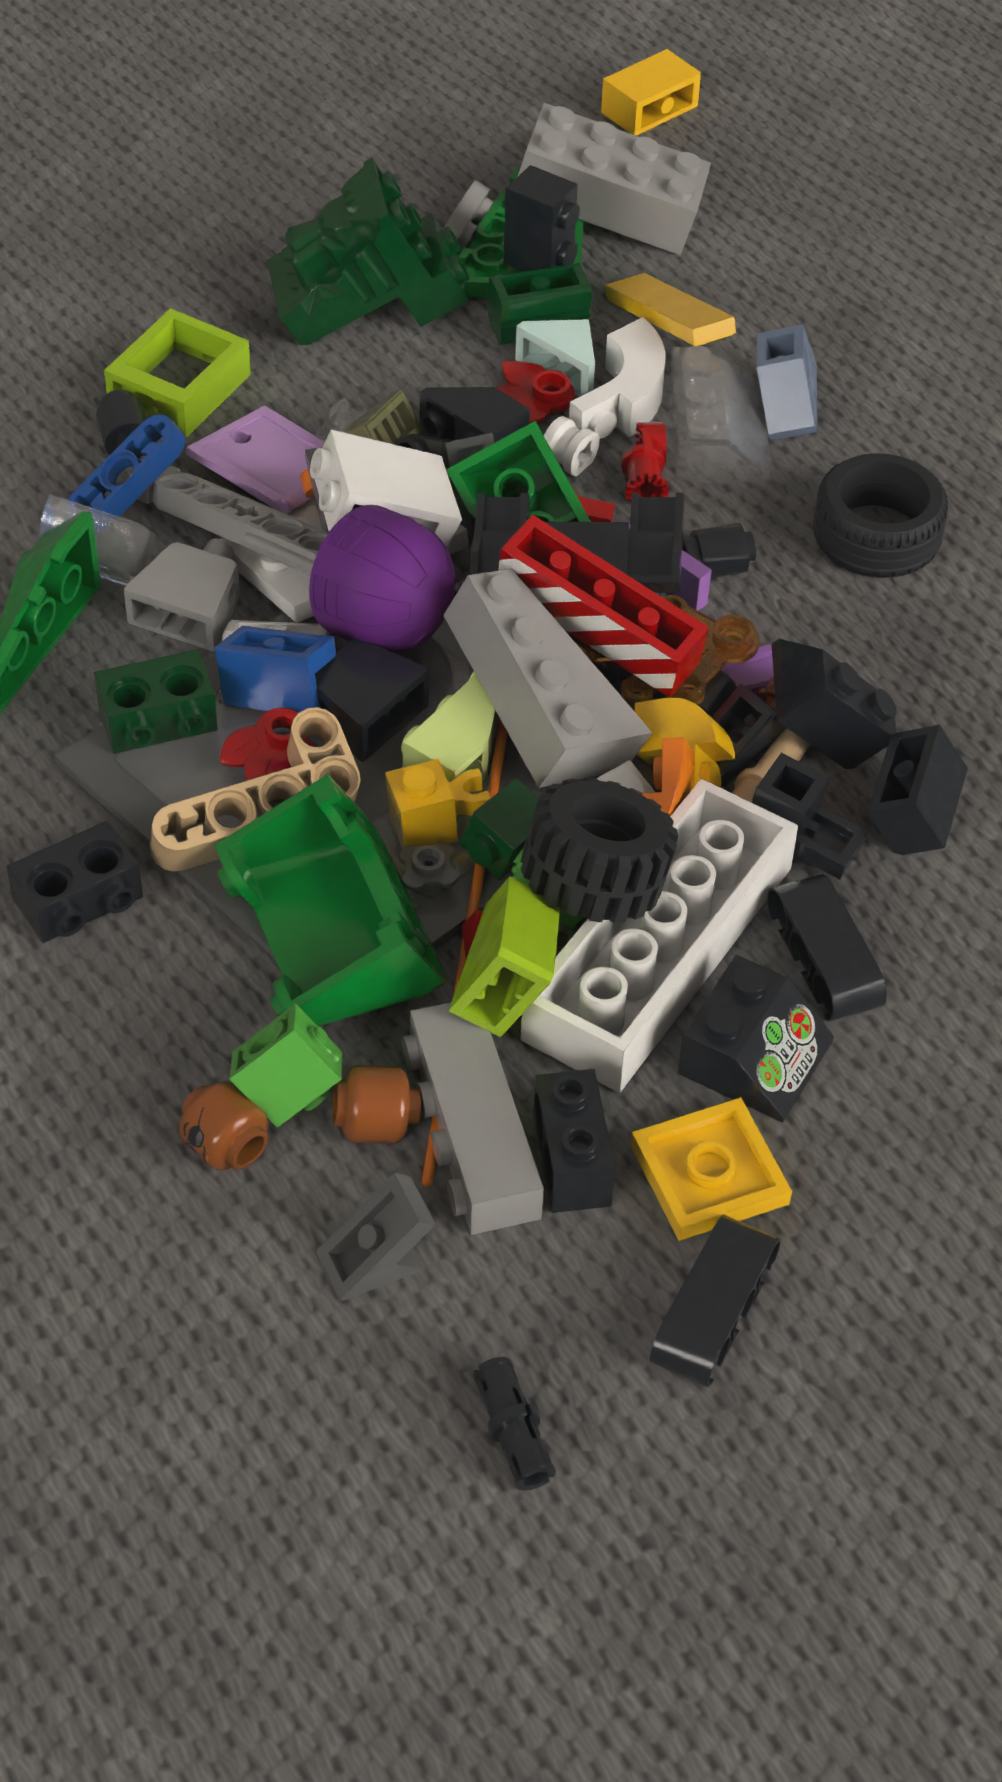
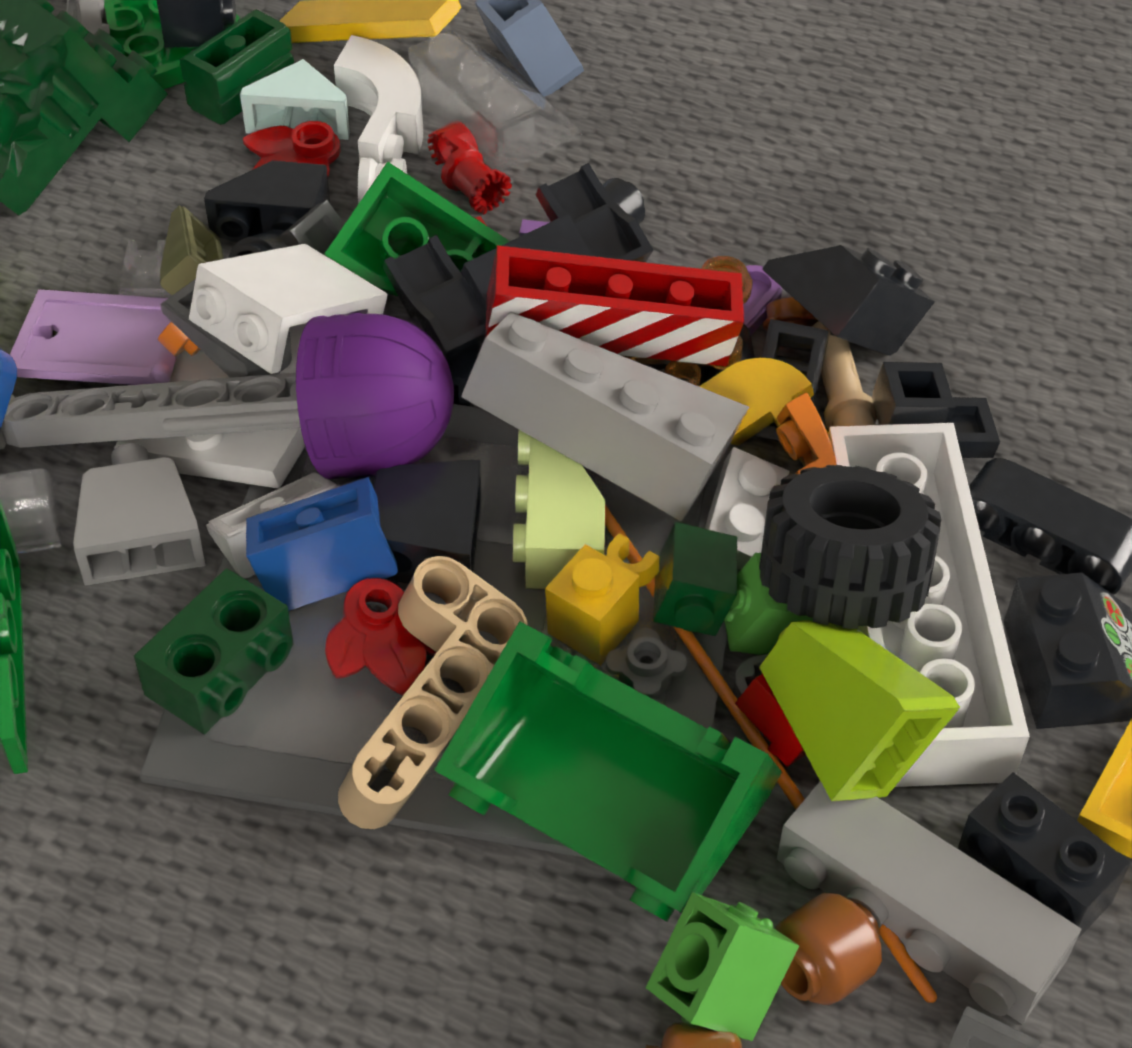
camera: 35 degrees left, 0 degrees up
(75, 882) = (280, 901): black brick -> none
(873, 546) = (709, 145): black tyre -> none
(917, 790) = (991, 338): black brick -> none

